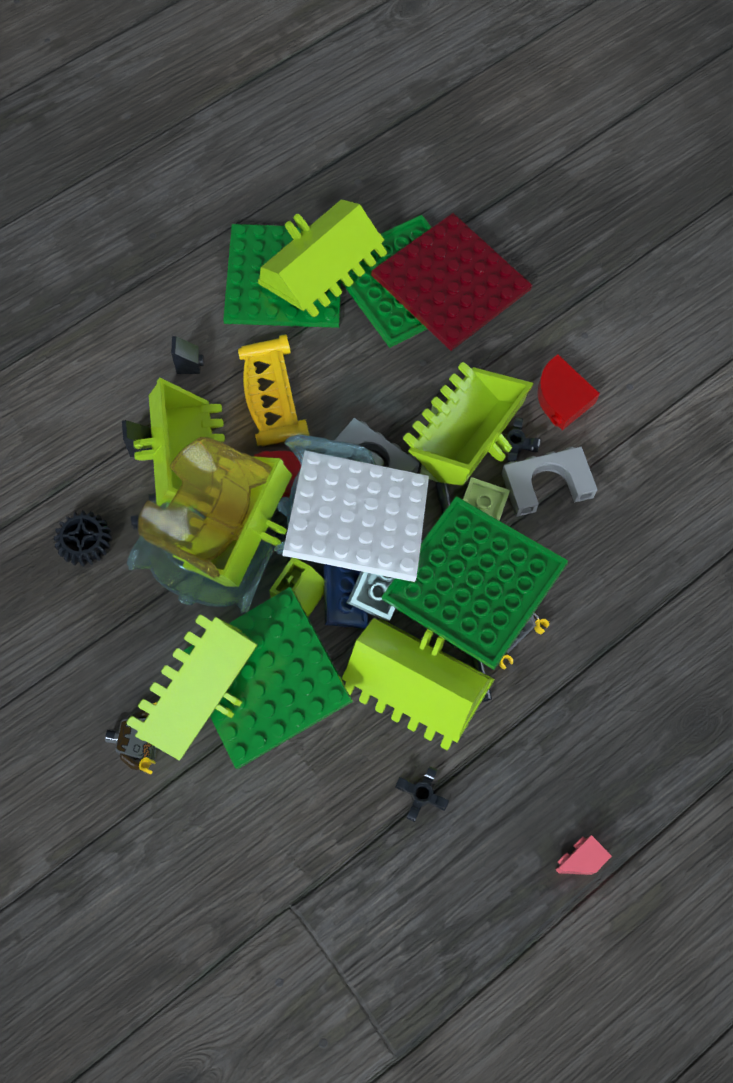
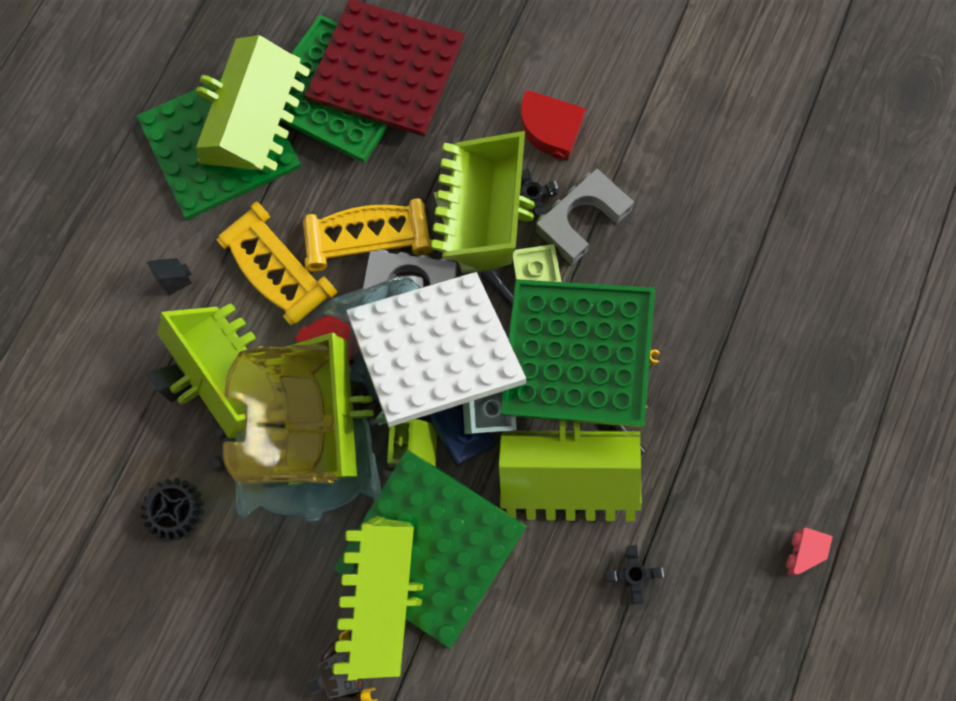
camera: 25 degrees left, 5 degrees up
(397, 423) = (321, 247): none -> yellow piece

